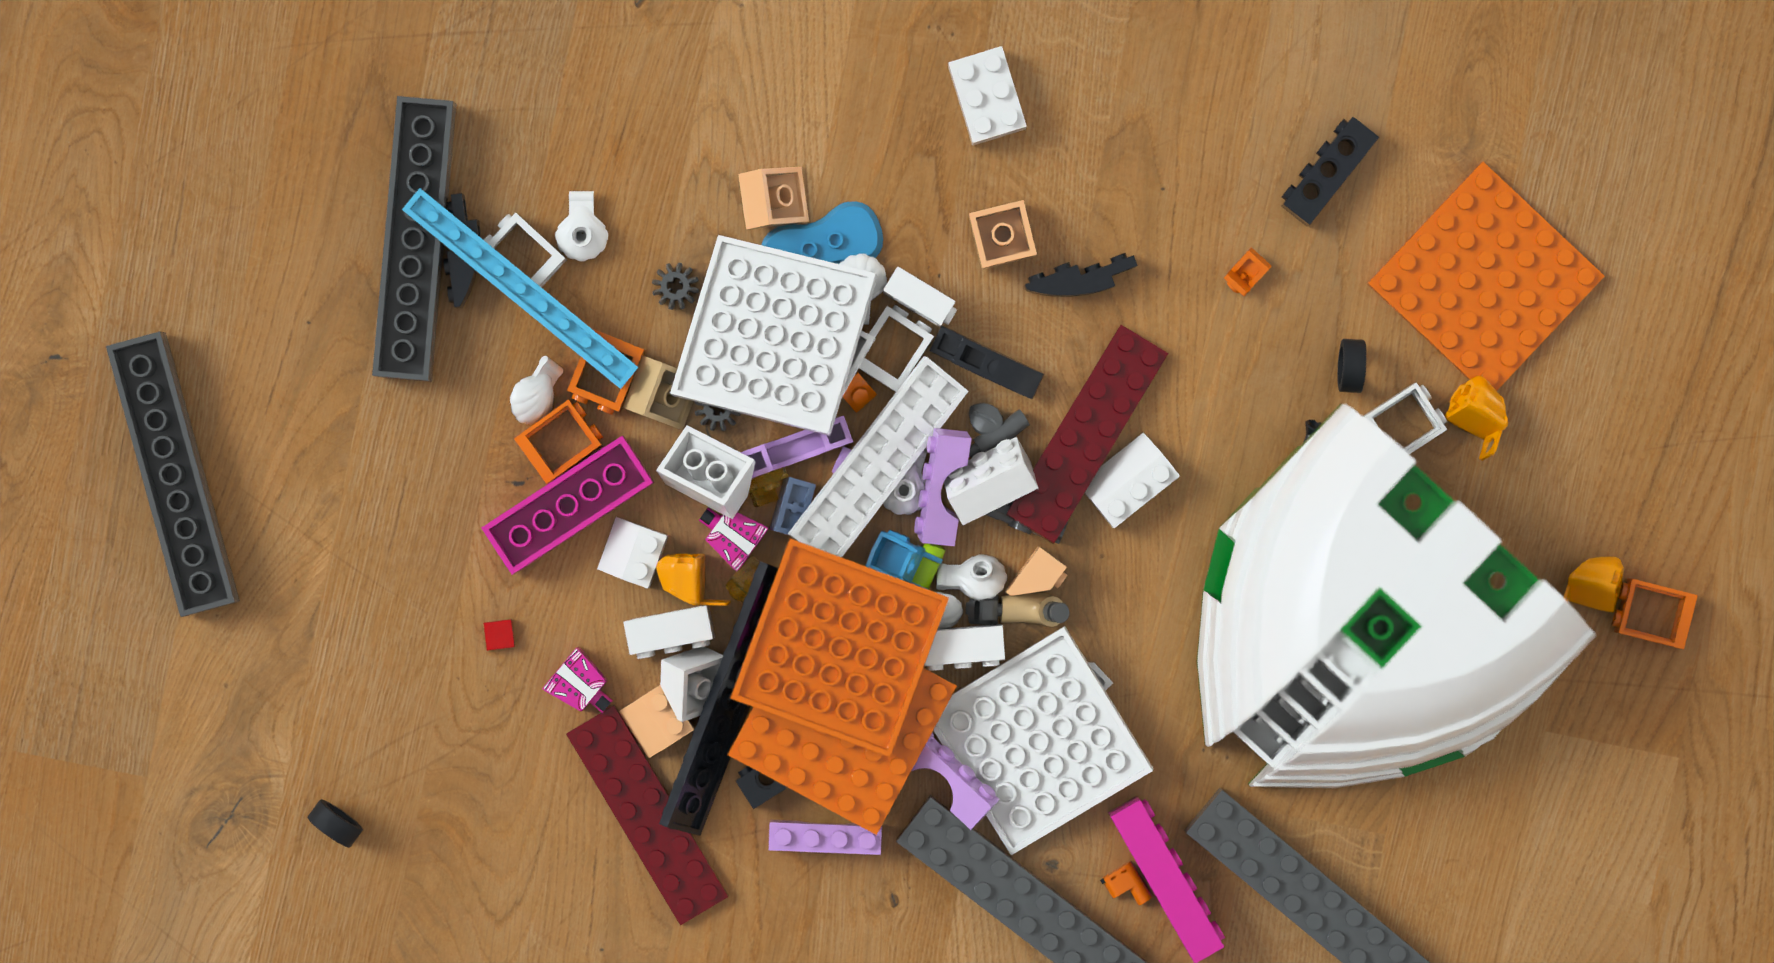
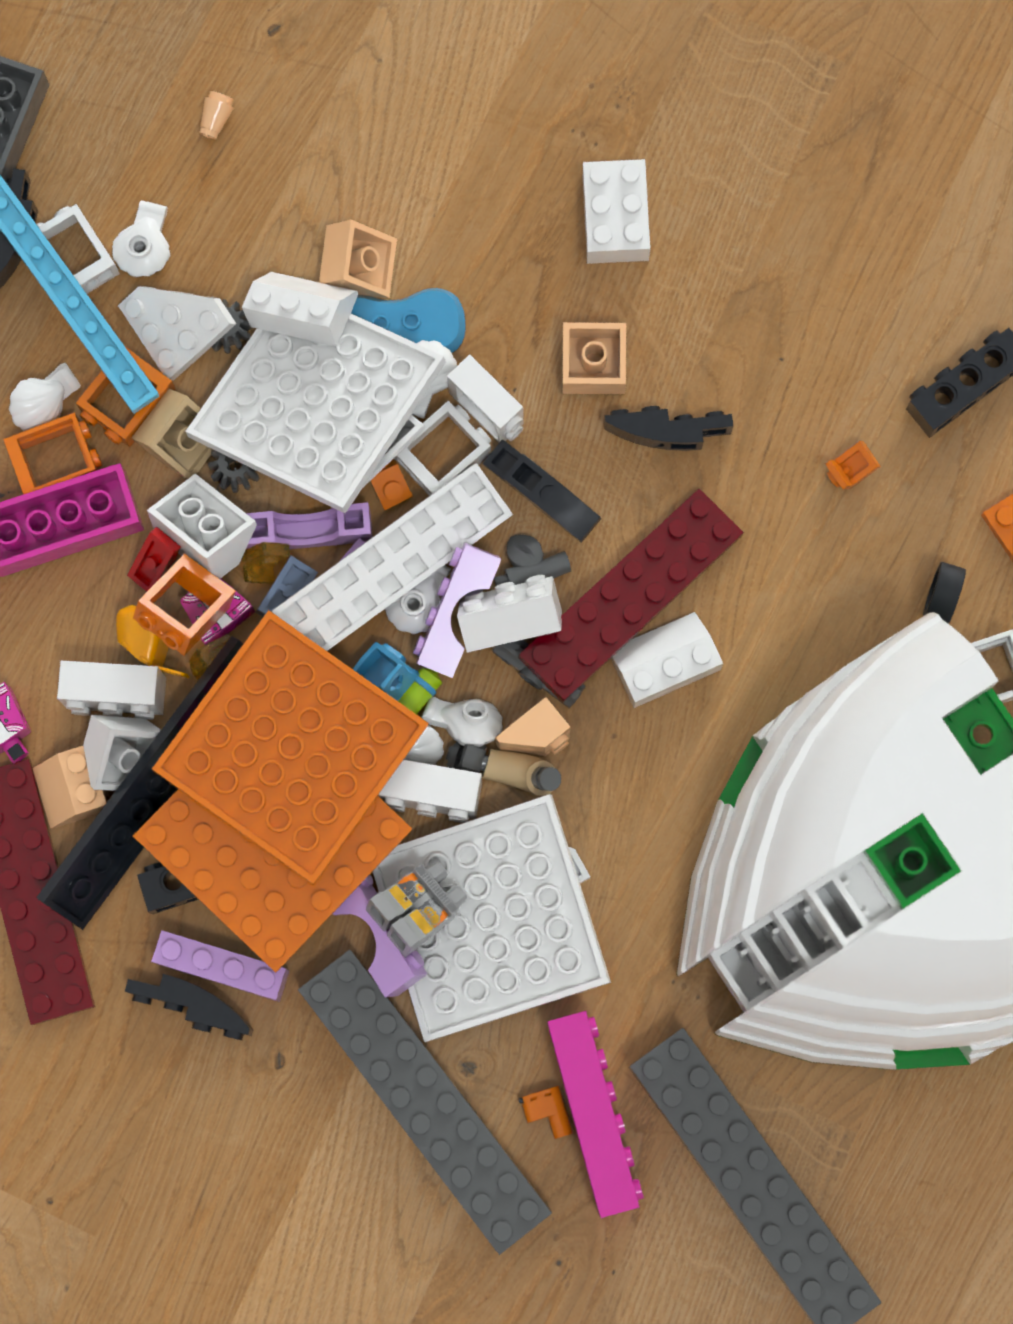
camera: 20 degrees right, 10 degrees down
(611, 95) = (215, 114): none -> light nougat cone
(632, 298) = (175, 325): none -> white plate
(632, 552) = (97, 597): white slope -> none
(673, 510) = (153, 559): none -> red plate
(725, 525) = (200, 584): none -> orange window
(737, 256) = (299, 307): none -> white slope
(822, 874) = (203, 1007): none -> black slope
(984, 742) = (424, 902): none -> light grey hips

